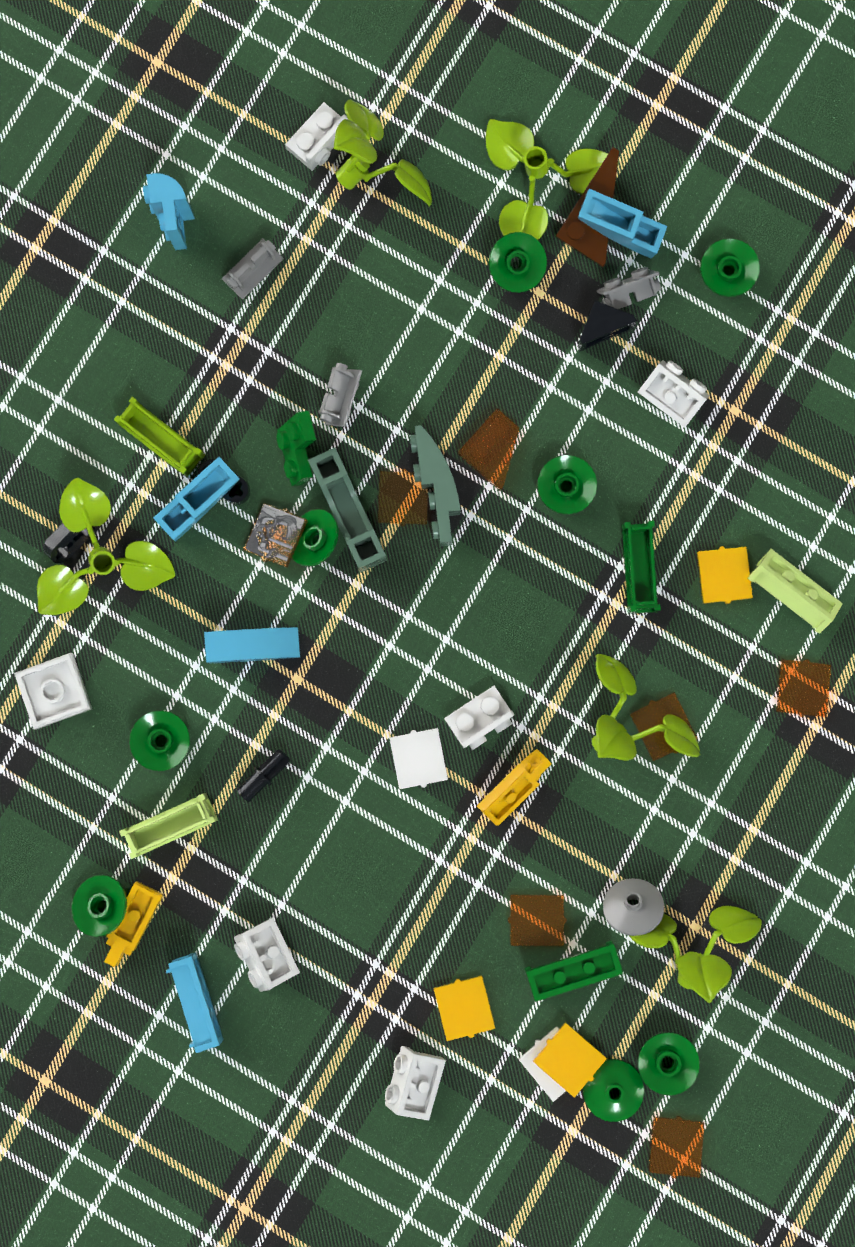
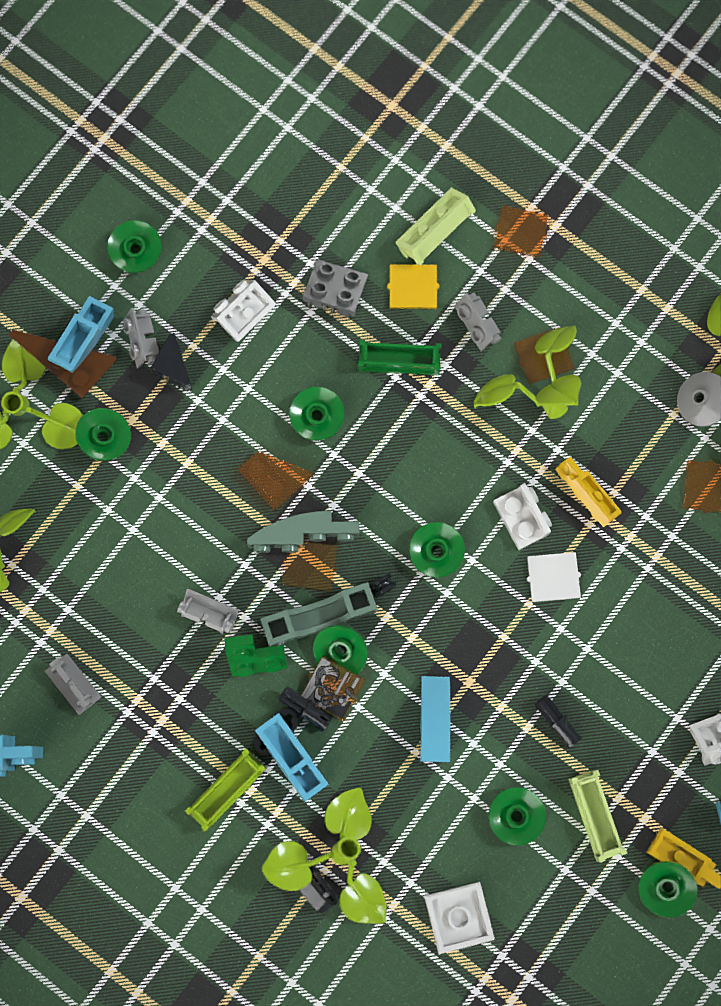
camera: 90 degrees left, 5 degrees down
(250, 508) = (305, 708): none -> black axle
(388, 575) = (383, 585): none -> black bush
(427, 613) = (445, 538): none -> green dish
(703, 640) = (471, 310): none -> light grey hinge
(711, 489) = (335, 287): none -> hinge

